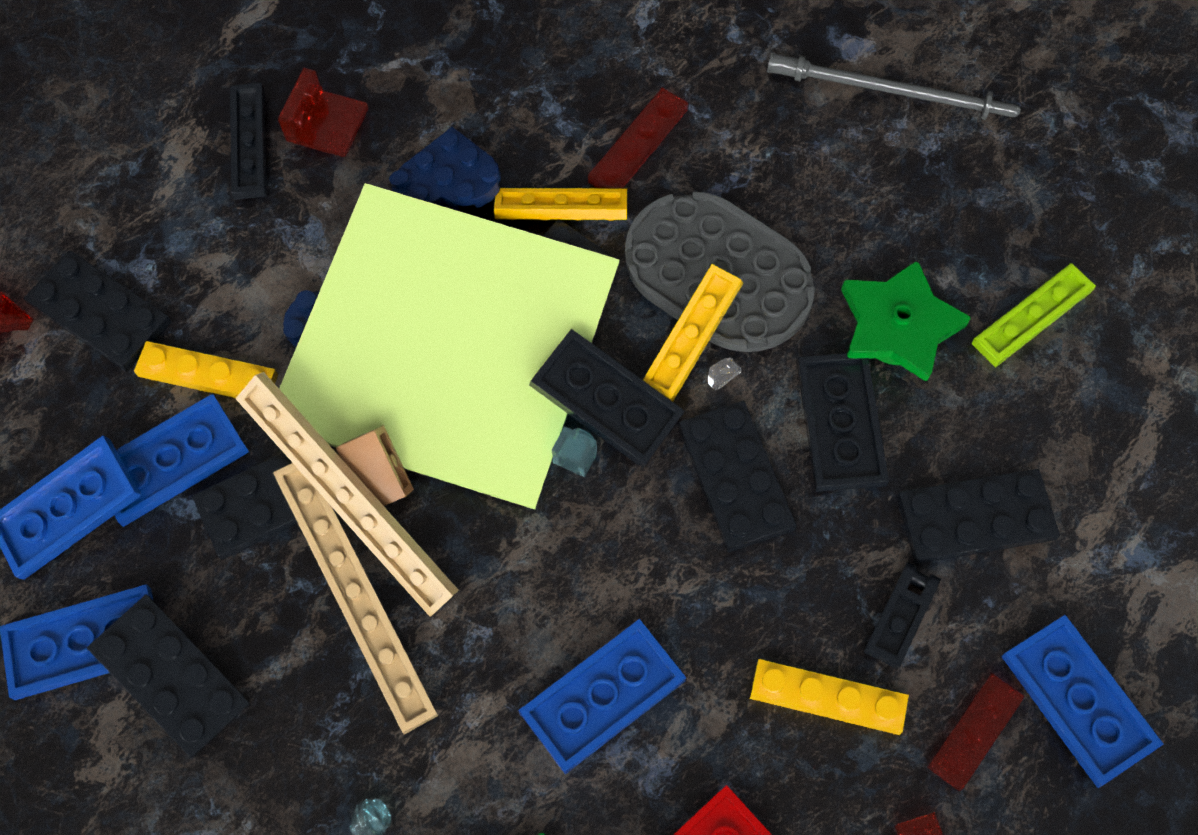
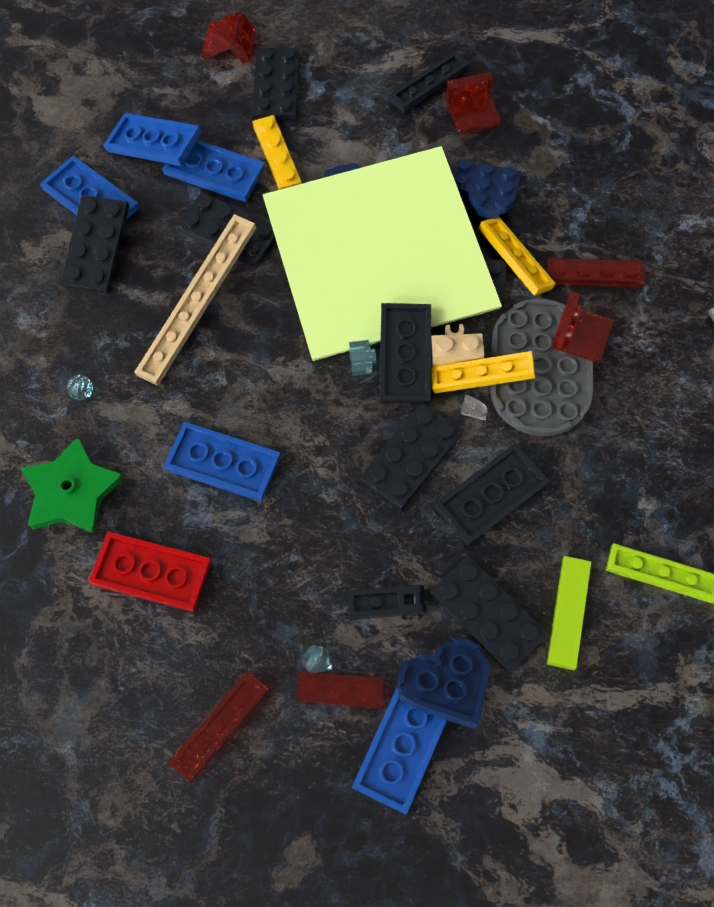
camera: 55 degrees right, 0 degrees up
(346, 494) = (245, 256): tan plate -> none
(377, 465) = (273, 261): medium nougat brick -> none
(642, 340) = (456, 347): none -> tan brick
(712, 201) = (581, 331): none -> clear red bracket
(829, 697) = (305, 590): yellow plate -> none
(900, 320) = (587, 489): green plate -> none
(926, 736) = (316, 659): none -> clear light blue plate
(1025, 433) = (569, 613): none -> lime tile
(1041, 606) = (447, 683): none -> dark blue plate

